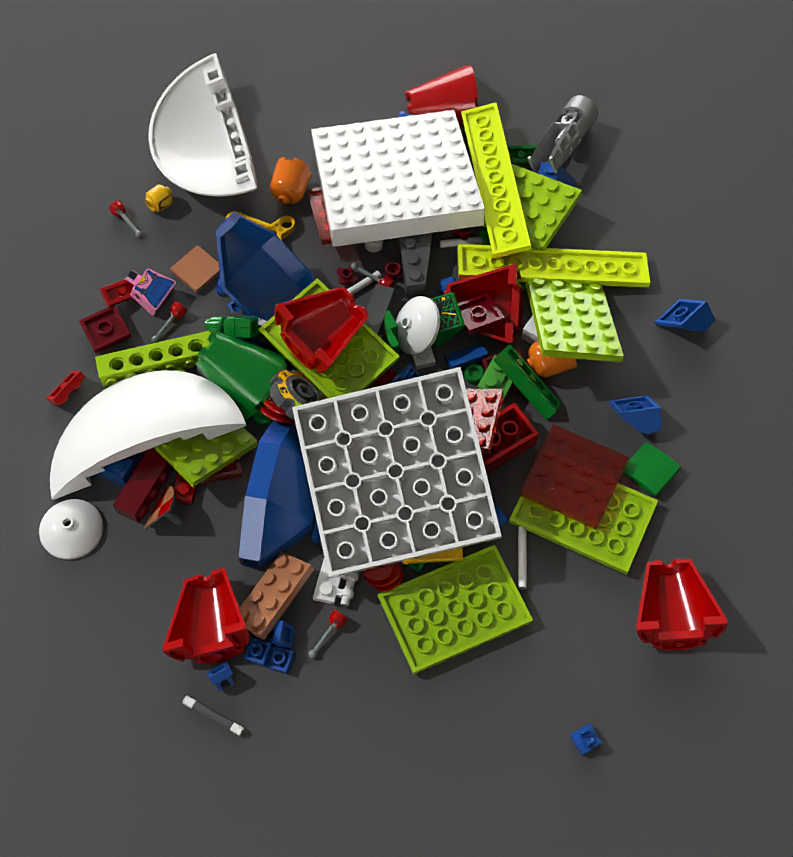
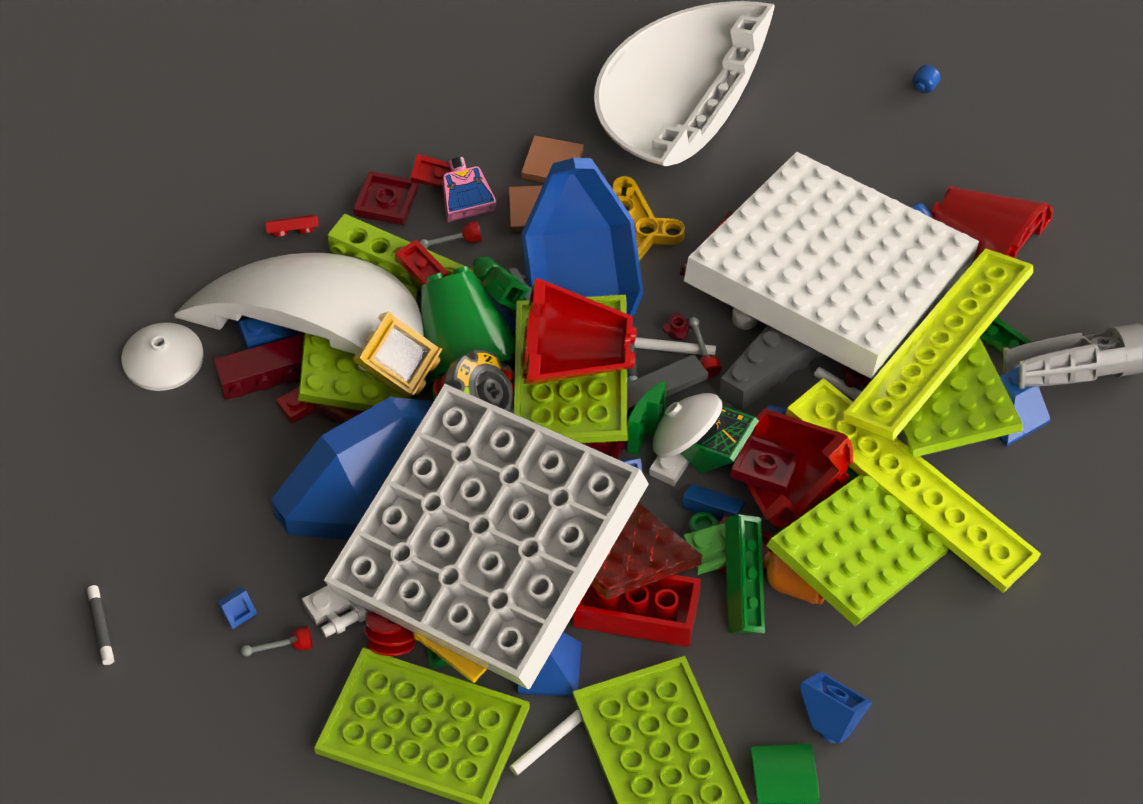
camera: 45 degrees right, 10 degrees down
(118, 209) = (521, 95): hinge -> none
(159, 198) = (570, 112): yellow head -> none
(164, 507) = (258, 410): shield -> none
(177, 235) = (546, 152): none -> nougat tile
(177, 351) = (419, 262): none -> red plate
(206, 621) = (179, 532): red cone -> none
(219, 674) = (143, 592): blue tile -> none
(230, 413) = (398, 355): none -> yellow window
(270, 656) = (206, 618): blue slope -> none
(274, 593) = (266, 562): nougat plate -> none
(290, 180) = (717, 188): orange cylinder -> none
(329, 40) = (926, 79): none -> blue piece
(393, 266) = (729, 353): dark red plate -> none
(574, 476) = (687, 707): clear red plate -> none
(687, 315) = (1011, 657): blue slope -> none

